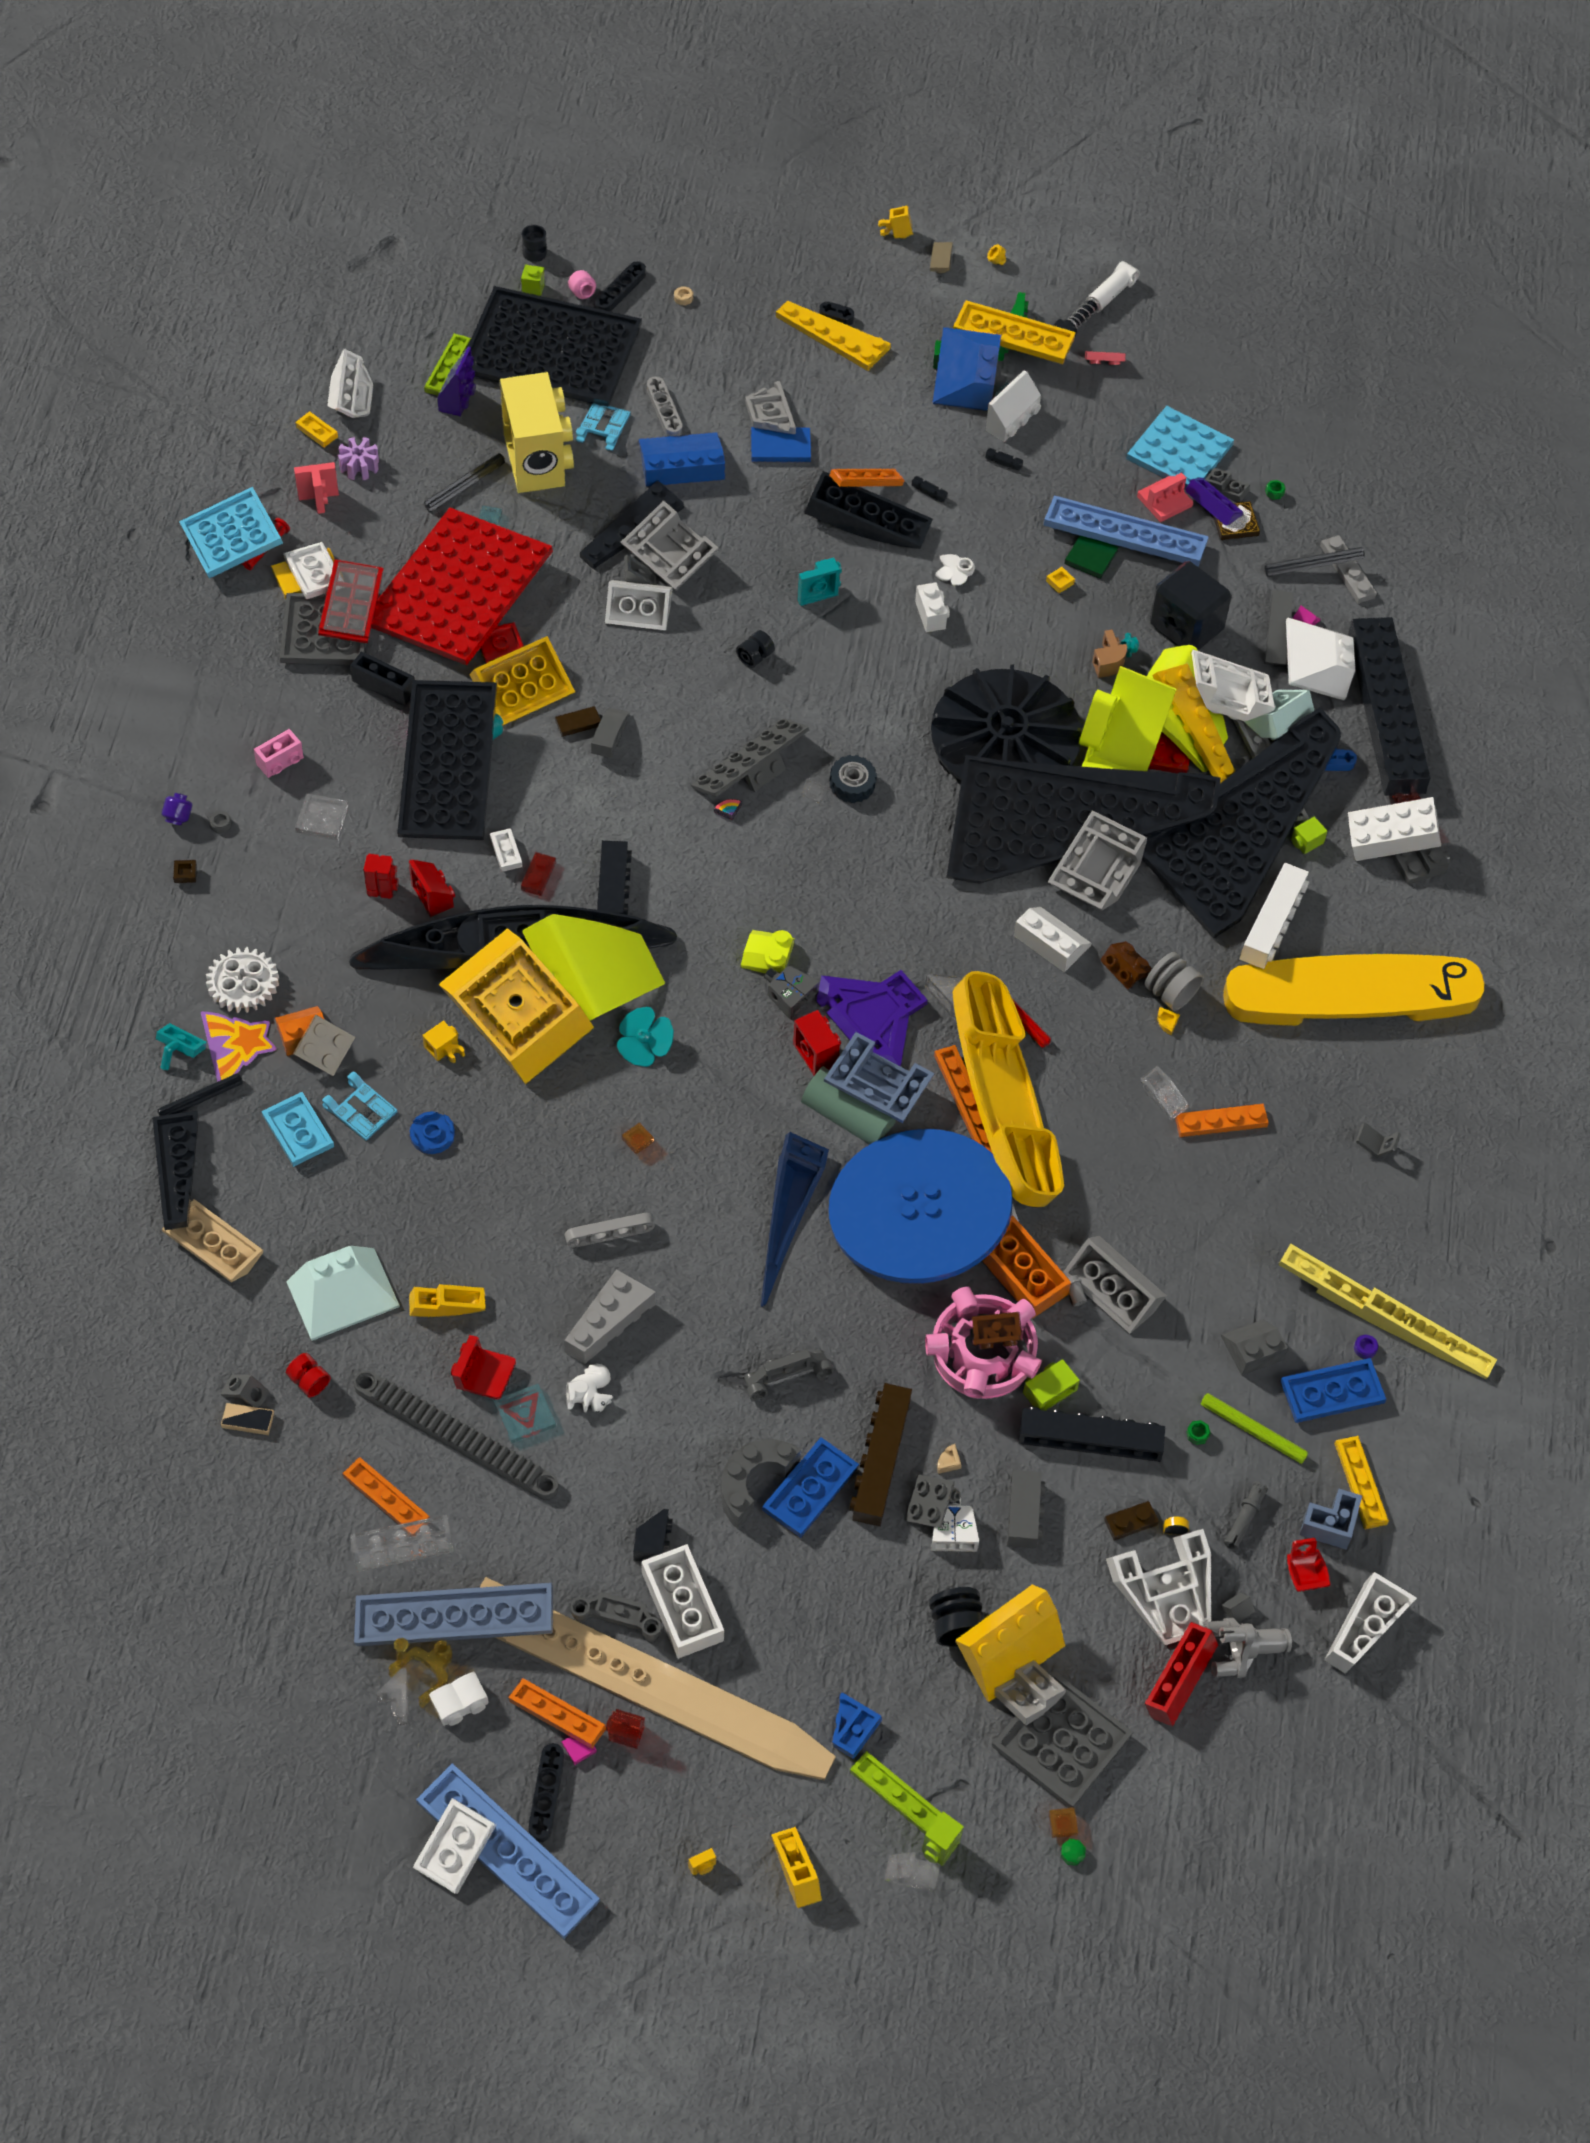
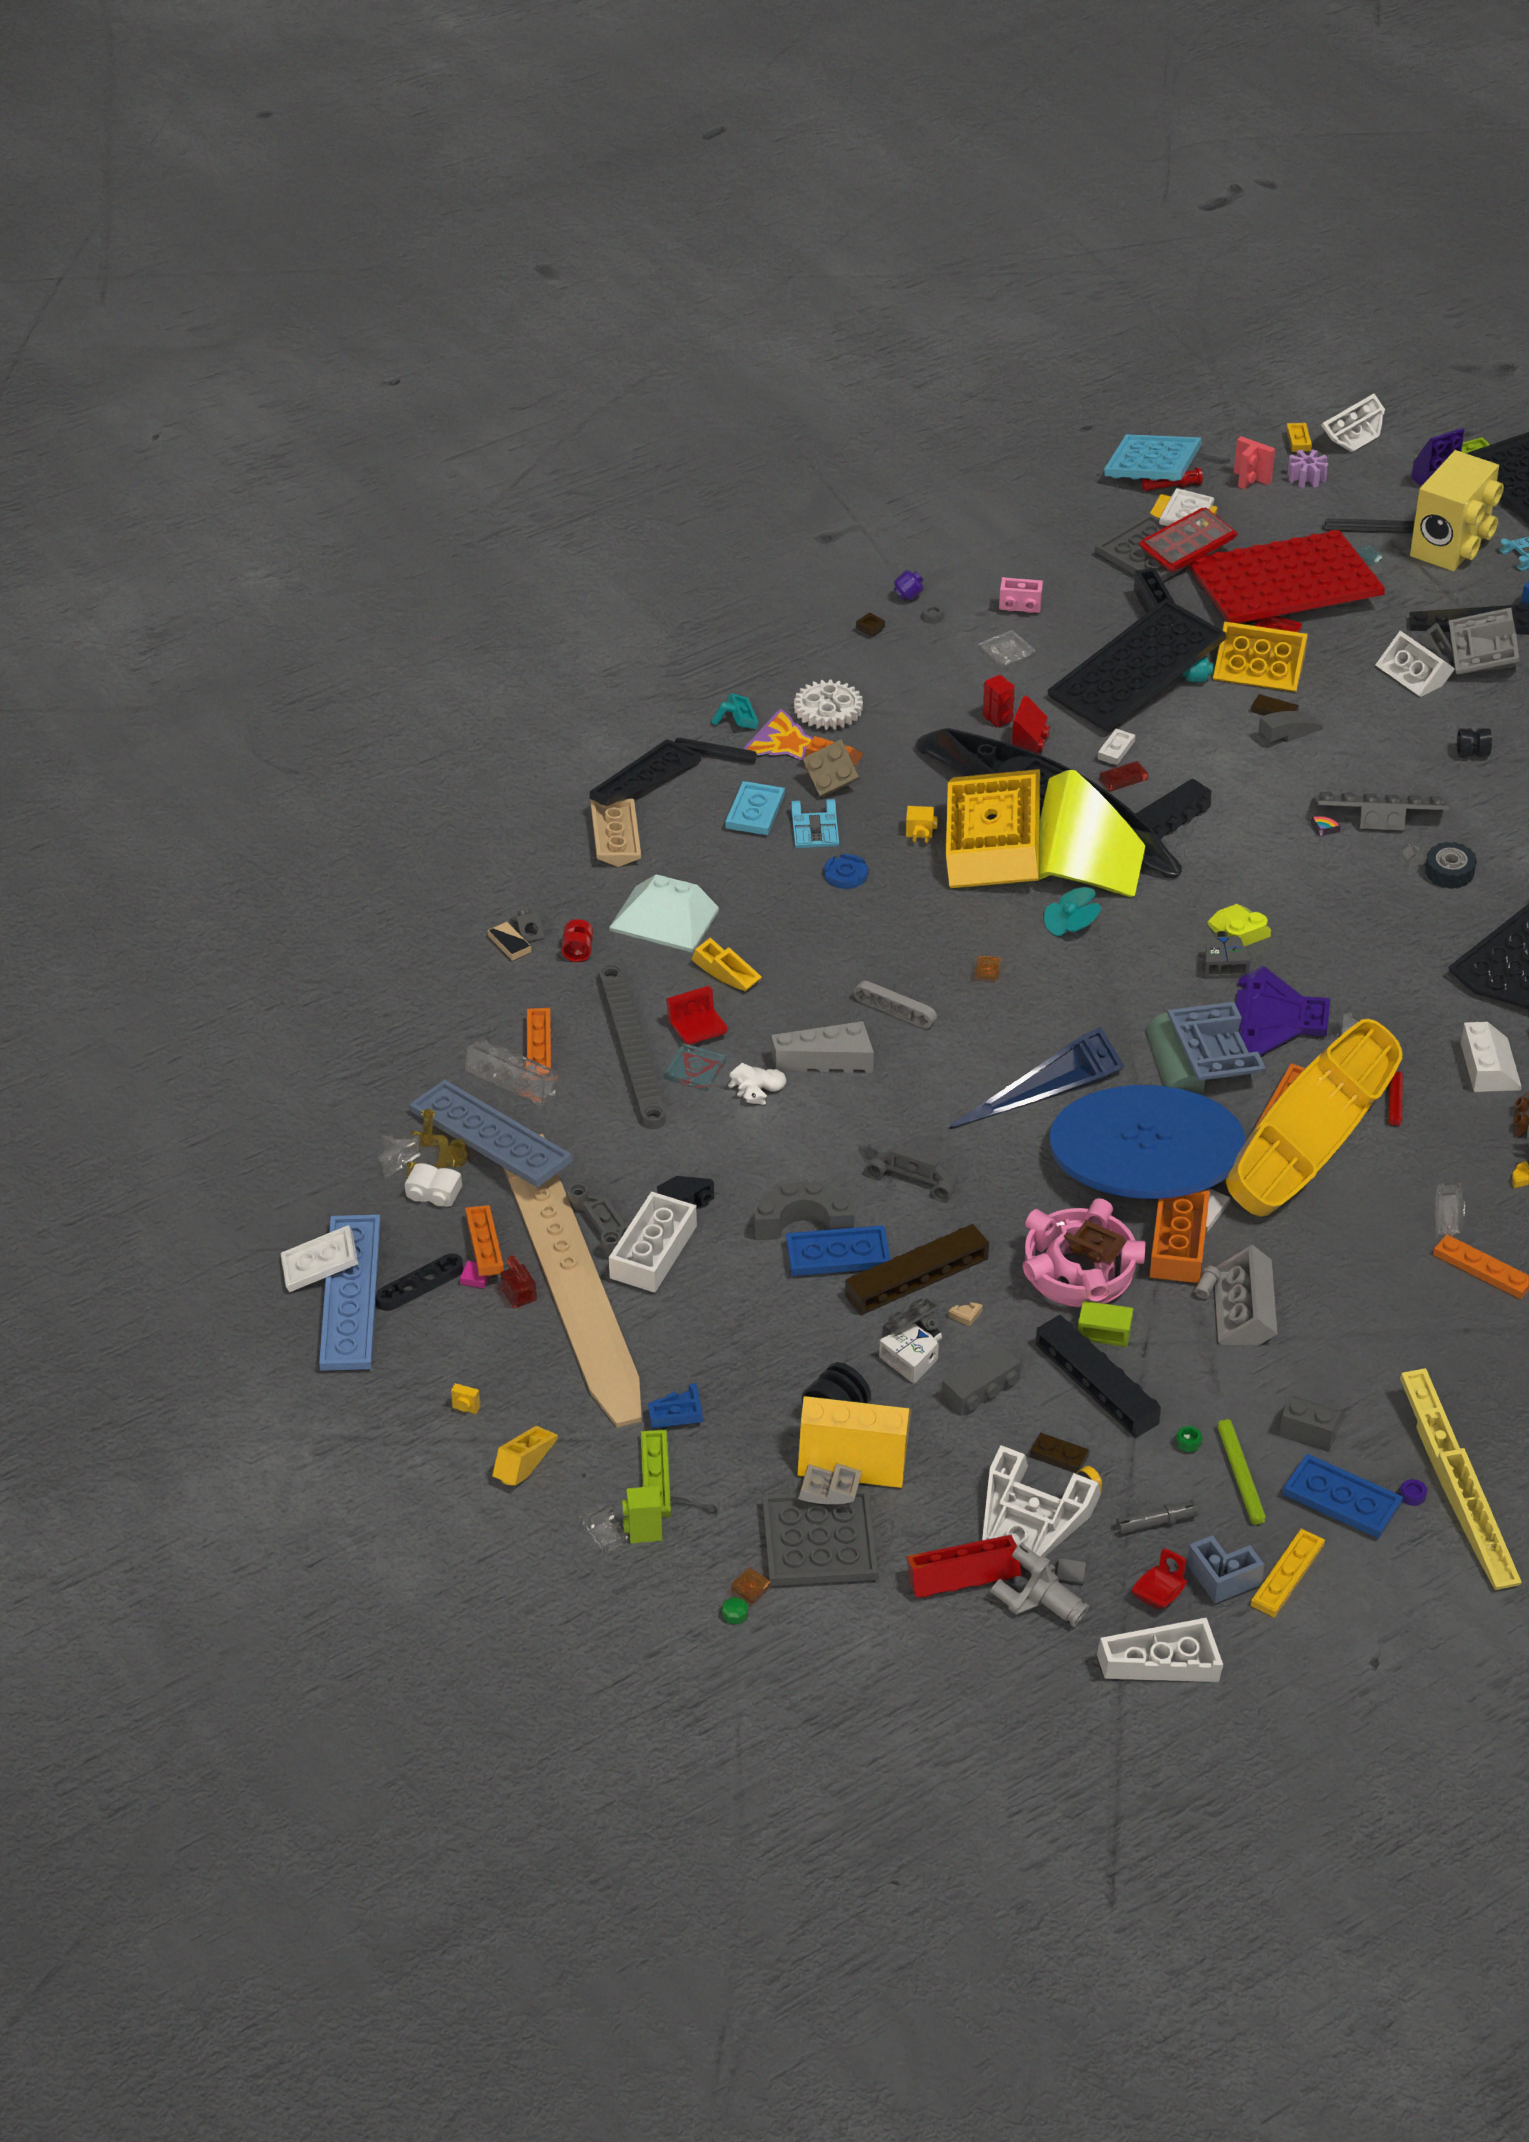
camera: 50 degrees right, 15 degrees down
(816, 1041) = (1199, 985): red brick -> none

